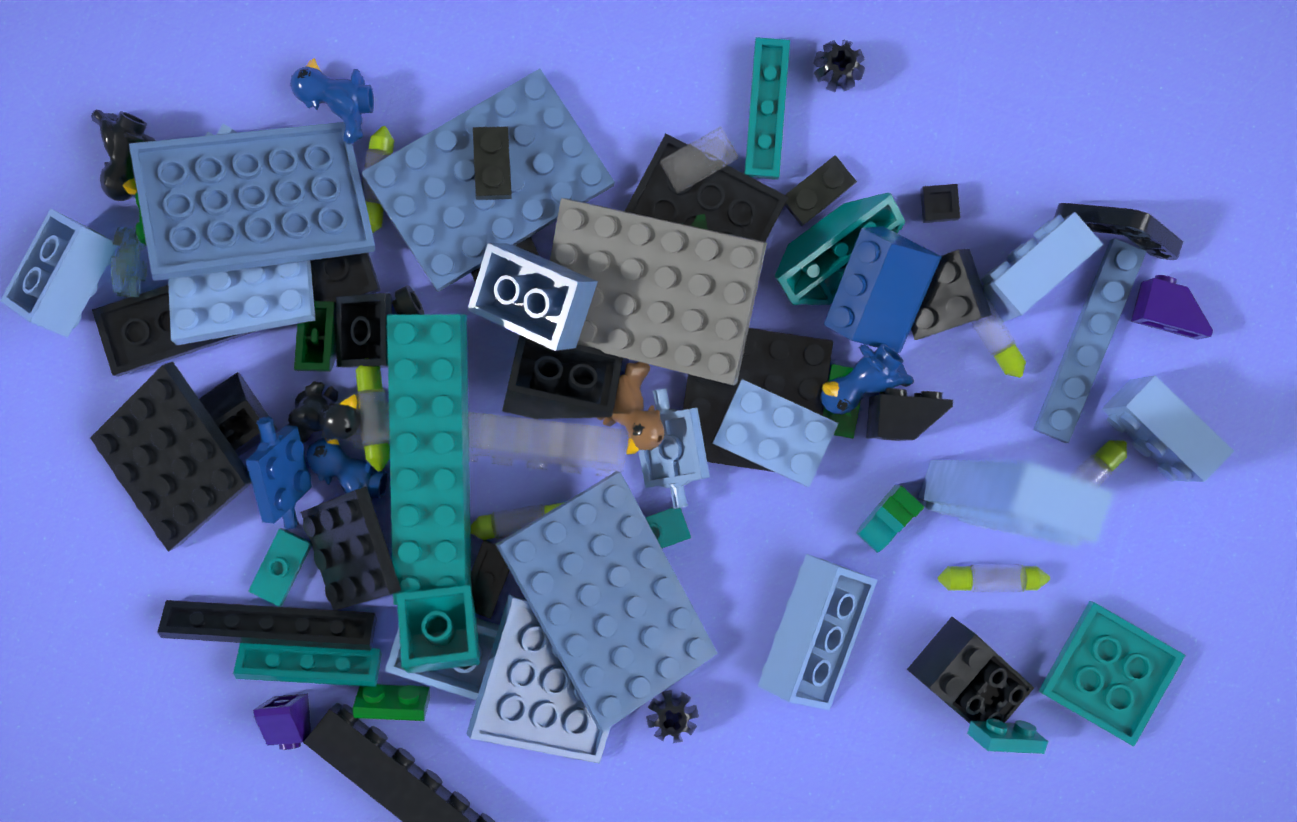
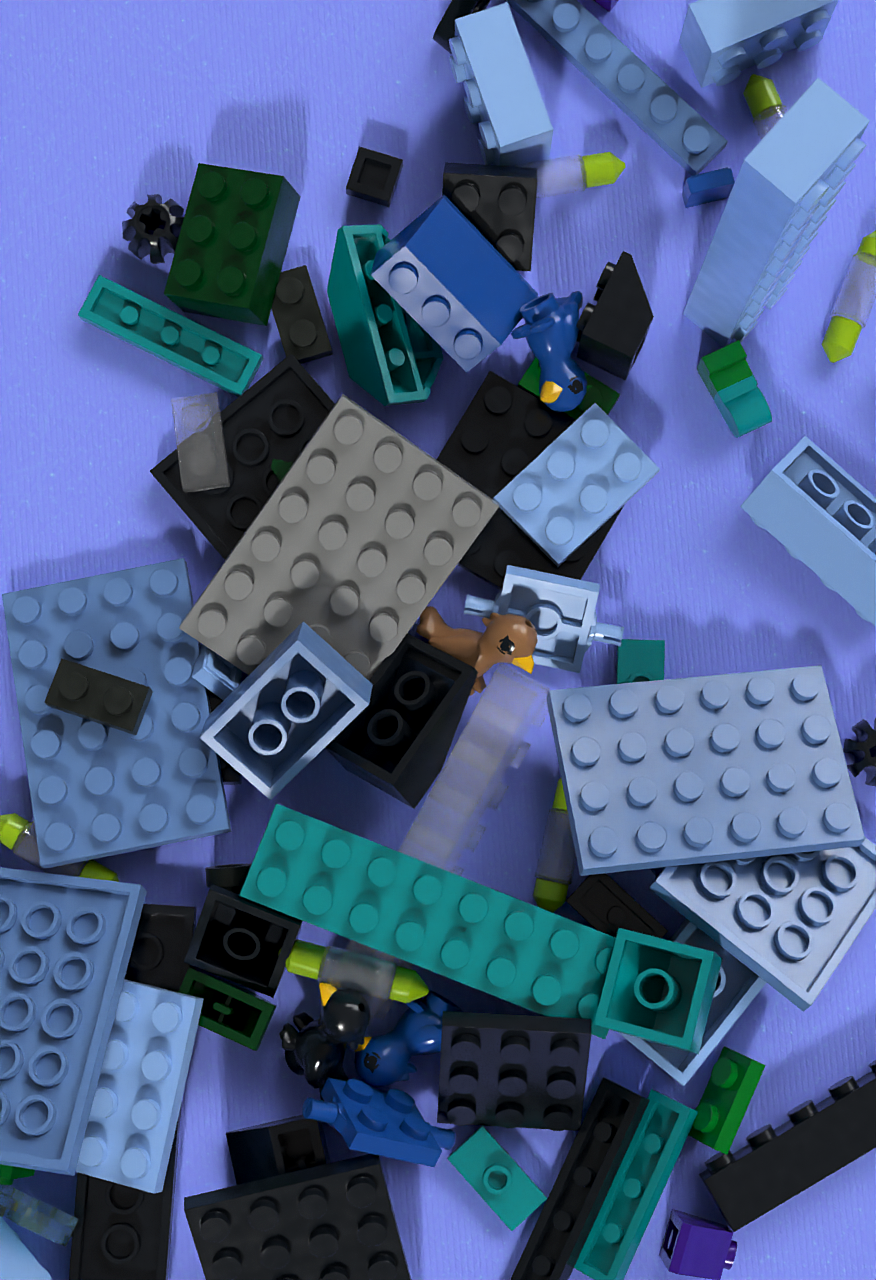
camera: 65 degrees left, 5 degrees down
(541, 237) = (216, 673): none -> light blue tile
(849, 123) = (232, 244): none -> dark green brick
(1028, 442) = (708, 187): none -> blue tile

